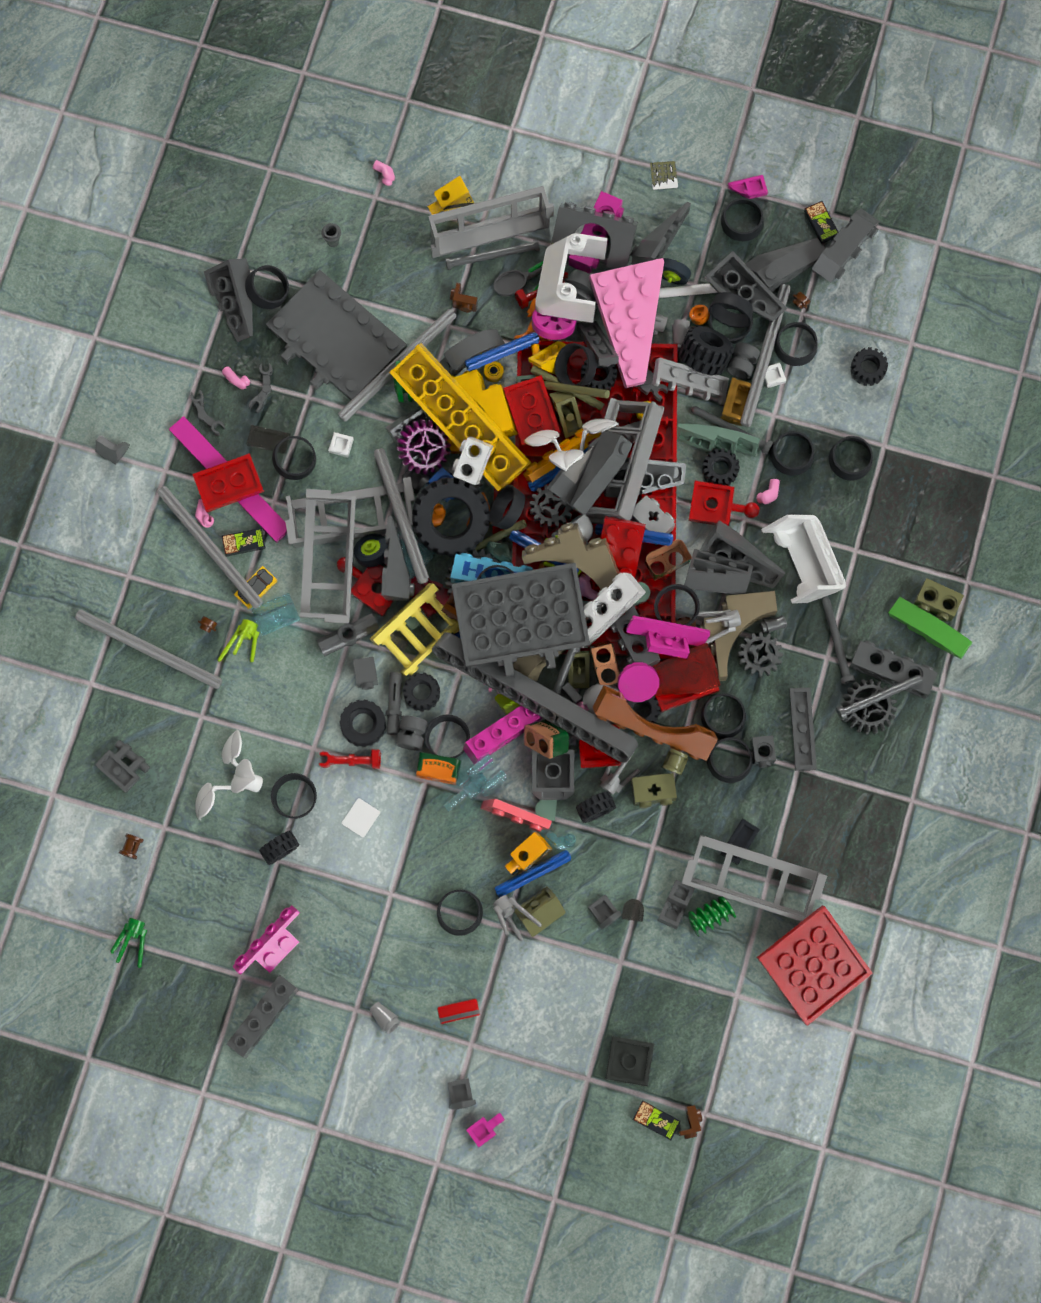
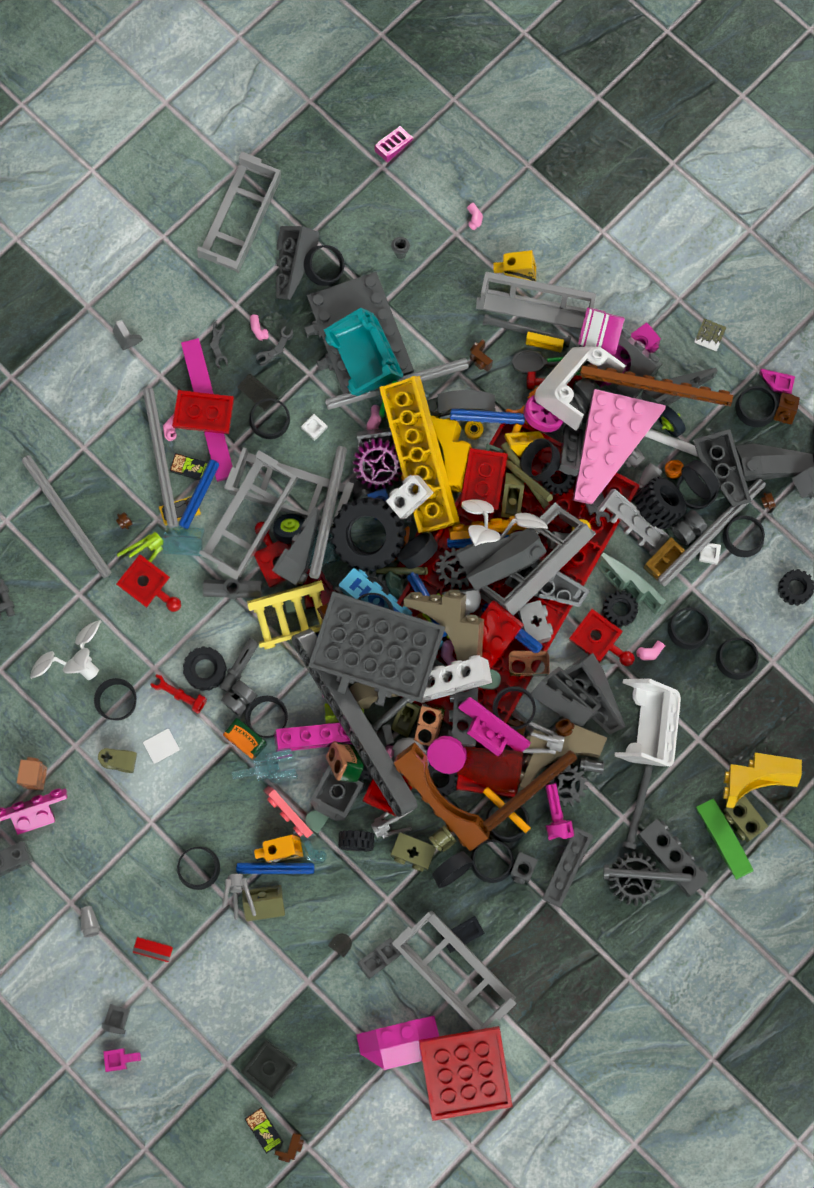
camera: 30 degrees right, 0 degrees up
(147, 225) = (252, 164): none -> light grey piece
(253, 907) = (32, 774): none -> nougat brick
(264, 154) = (388, 155): none -> slope
(266, 562) = (198, 494): none -> blue axle
(268, 681) = (147, 593): none -> red plate
(279, 847) = (79, 735): black tyre -> none
(330, 850) = (121, 760): none -> olive piece
(351, 349) = (364, 351): none -> teal windscreen
(365, 673) = (229, 628): dark grey brick -> none
(396, 408) = (374, 420): none -> bright pink arm
(425, 704) = (258, 659): black tyre -> none
(438, 515) = (361, 527): orange arm -> none
(515, 256) = (544, 342): none -> yellow tile
(566, 217) = (601, 330): none -> dark pink slope
(604, 912) = (317, 932): dark grey tile -> none
(653, 240) = (665, 386): none -> dark orange plate
(699, 785) = (452, 869): none -> black tyre
(710, 915) = (402, 983): green piece -> none
(719, 705) = (499, 803): none -> light orange bar
(731, 676) = (529, 791): none -> reddish brown axle
(732, 601) = (564, 727): none -> reddish brown plate
(736, 973) = (397, 1043): none -> dark pink wedge
(766, 446) = (644, 574): dark grey bar -> none
(772, 207) = (787, 408): none -> reddish brown bracket
(774, 695) = (558, 827): none -> dark pink piece
(929, 550) = (761, 772): none -> yellow arch

